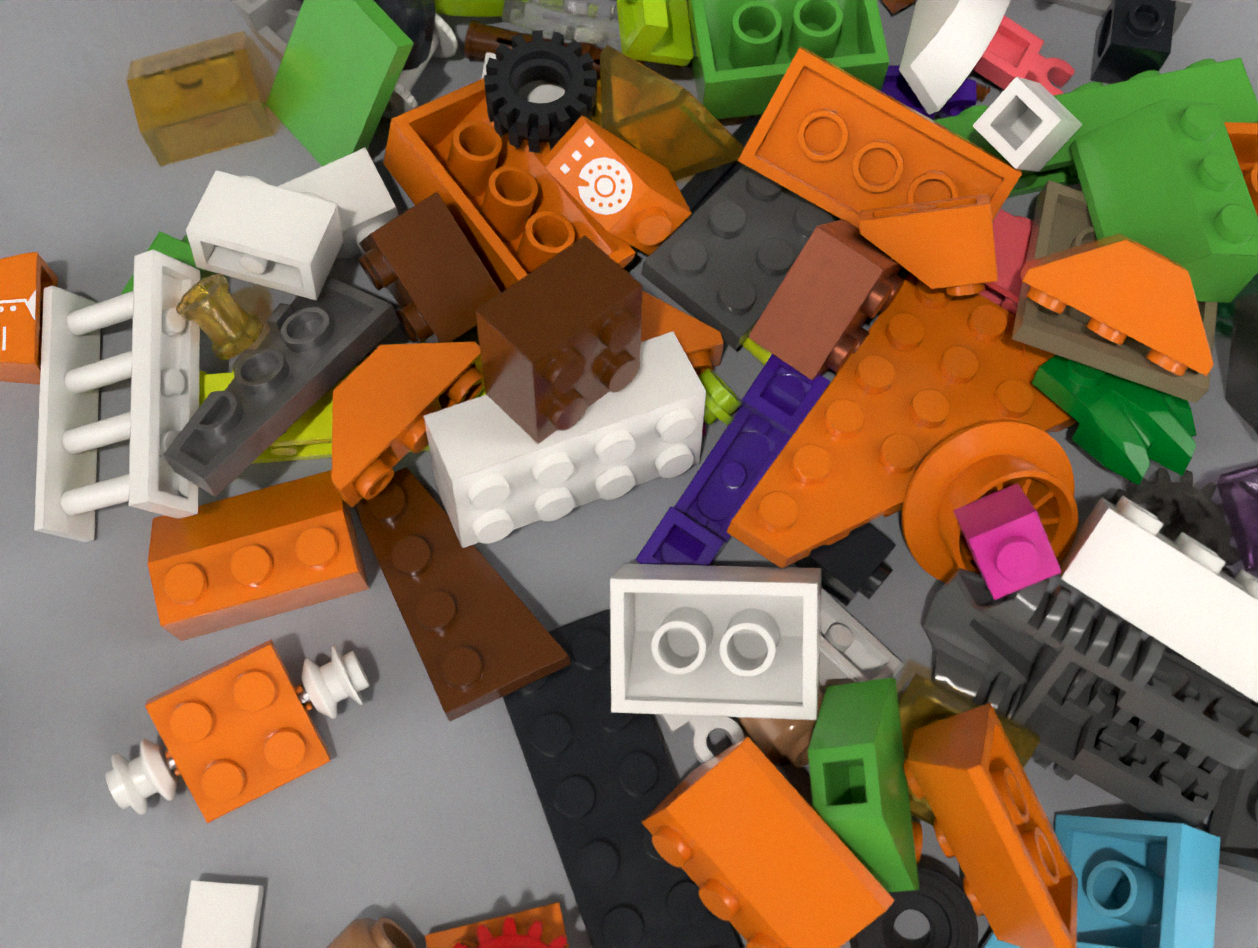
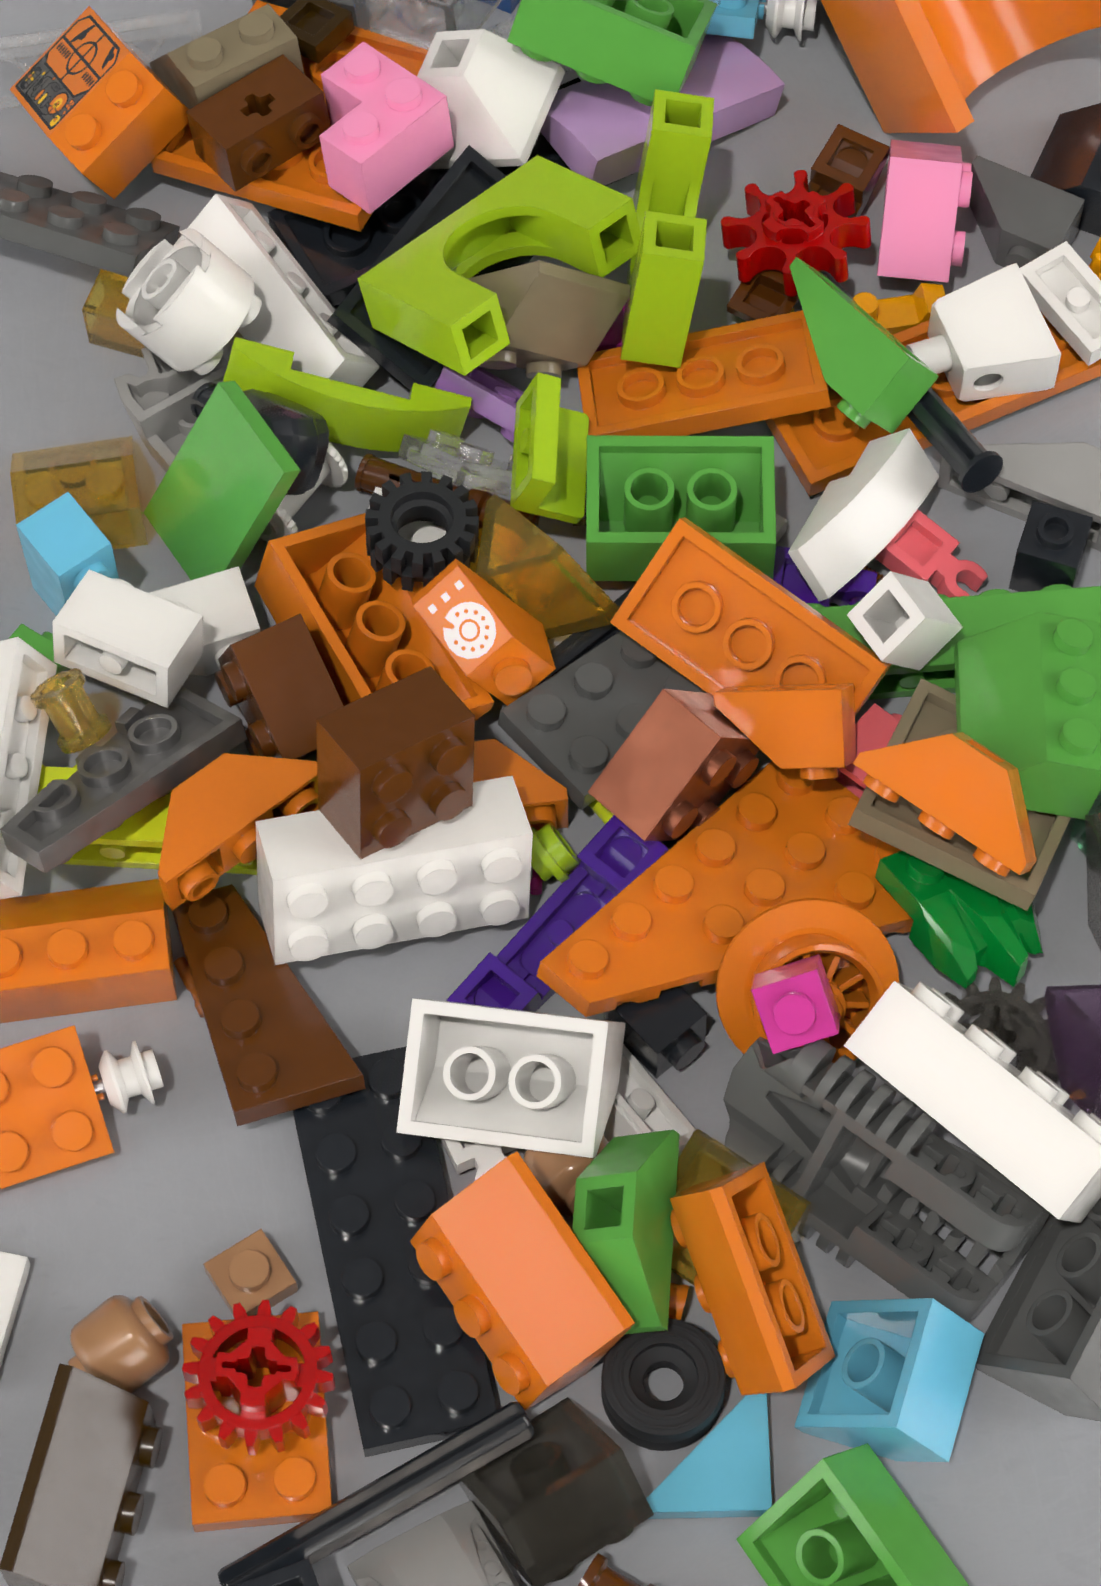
camera: 10 degrees right, 10 degrees down
(189, 150) = (60, 549): none -> medium azure brick
(372, 561) = (185, 975): none -> dark orange piece
(485, 871) = (250, 1273): none -> medium nougat plate

